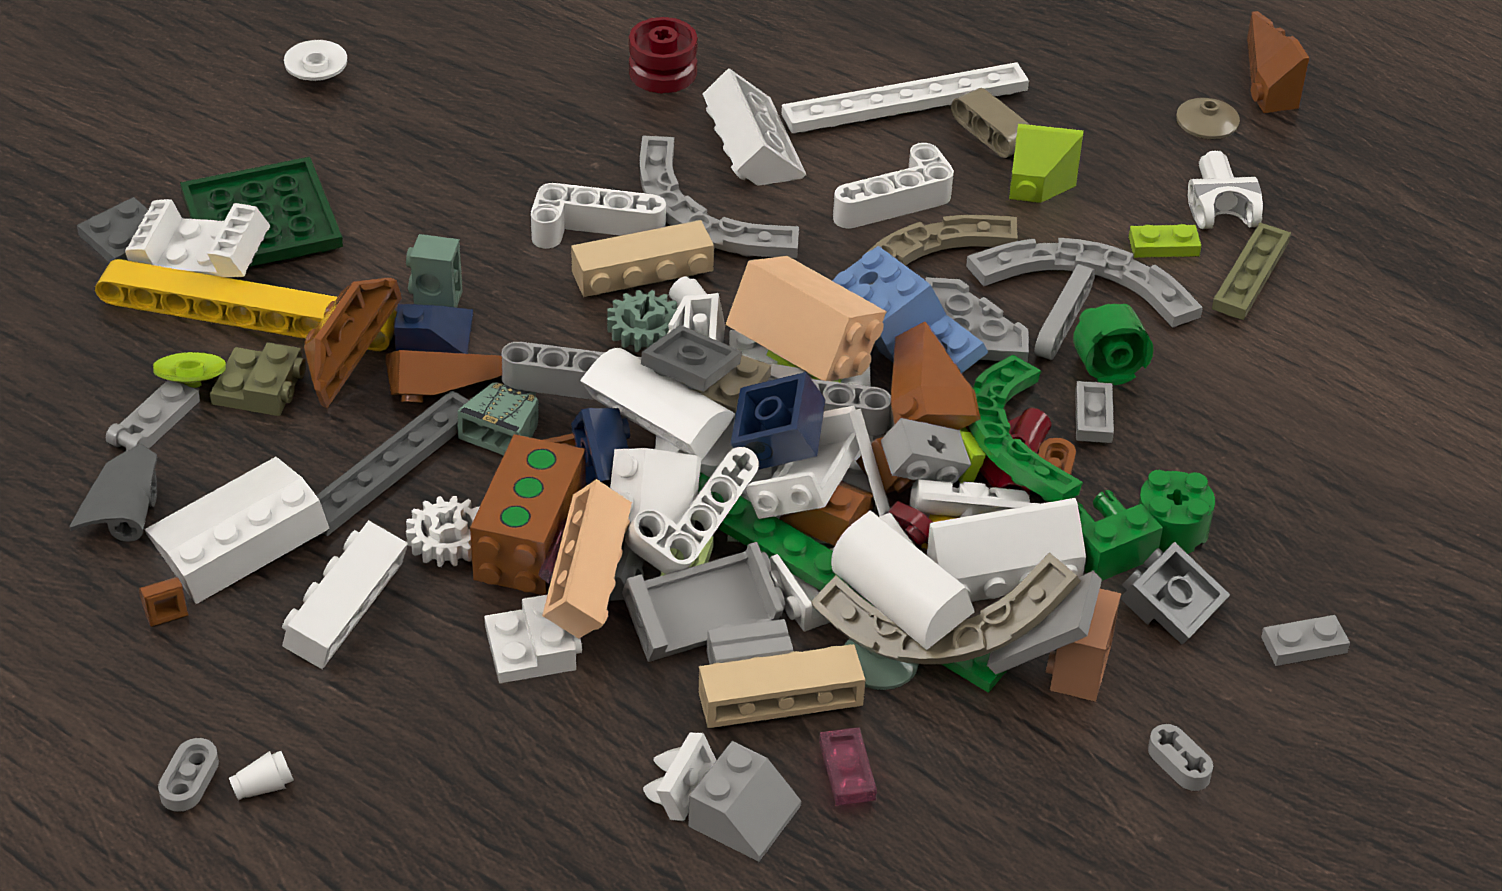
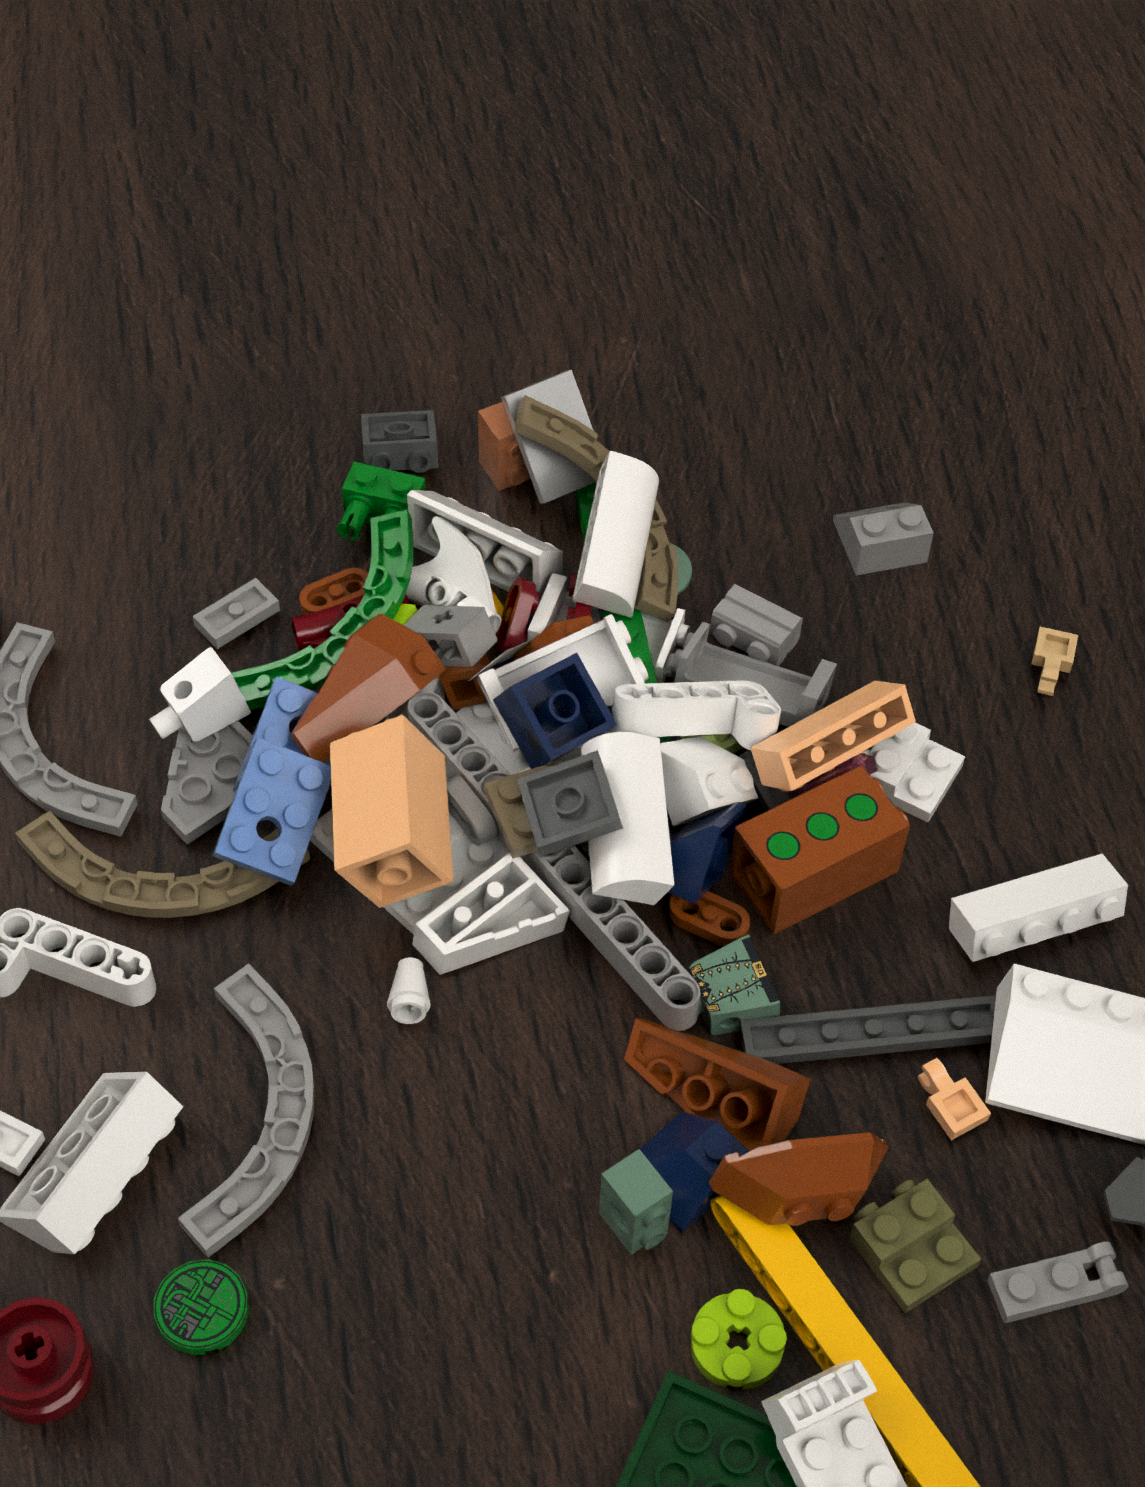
camera: 135 degrees left, 10 degrees up
(189, 368) = (977, 1278): lime dish -> none
(304, 455) = (952, 1104): none -> light nougat plate
(332, 271) = (735, 1366): none -> lime plate
(445, 530) = (889, 913): white gear -> none
(503, 802) = (1054, 653): none -> tan plate
(592, 210) = (375, 1175): white beam -> none
(618, 128) = (201, 1307): none -> tile
(640, 319) = (482, 1004): sand green gear -> none
(642, 258) = (407, 1067): tan brick -> none
(684, 771) = (892, 581): white tile -> none
(781, 685) = (733, 557): tan brick -> none
(847, 766) = (778, 505): clear pink plate -> none
(1013, 311) = (200, 699): none -> white torso
(1064, 312) = (77, 724): light grey beam -> none
(1112, 343) = (147, 634): green brick -> none
(1178, 758) = (539, 358): light grey beam -> none
(1180, 505) = (309, 486): green brick -> none
(1305, 640) = (352, 363): light grey plate -> none

